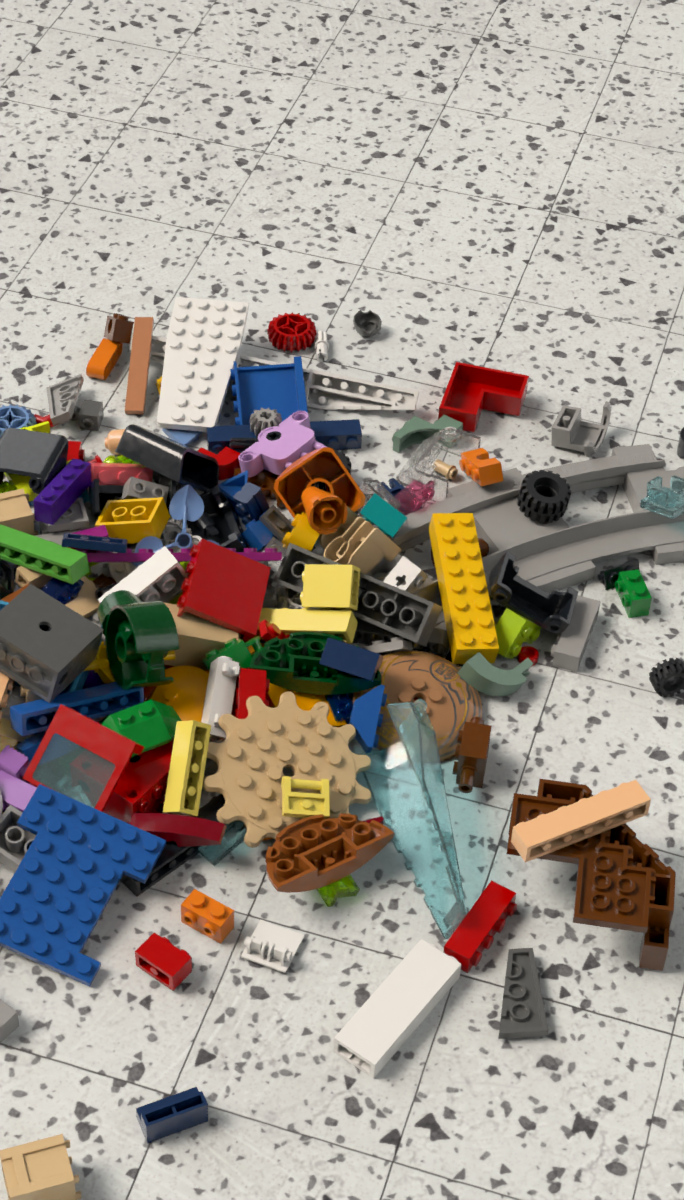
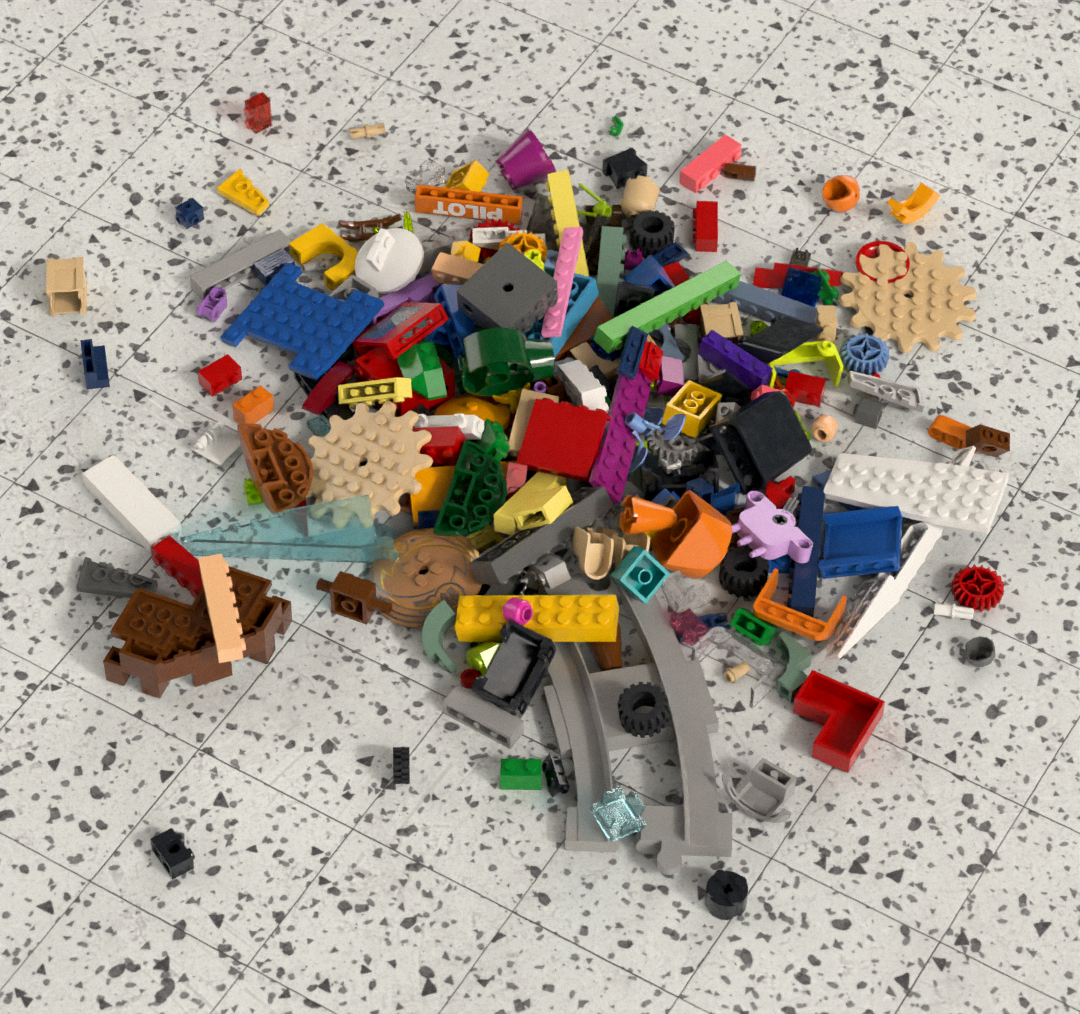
camera: 105 degrees right, 5 degrees up
(36, 1001) = (213, 304): none -> medium lavender piece
(139, 365) = (929, 449): nougat tile -> none
(264, 419) = (813, 524): light grey gear -> none
(305, 804) = (325, 467): light yellow plate -> none
(351, 659) = (454, 507): dark blue piece -> none
(366, 717) = (405, 525): blue slope -> none
(382, 414) = (794, 620): none -> orange windscreen
(393, 458) = (754, 627): none -> green brick
(480, 467) = (733, 690): orange arch -> none
(480, 582) = (517, 611): none -> dark pink head

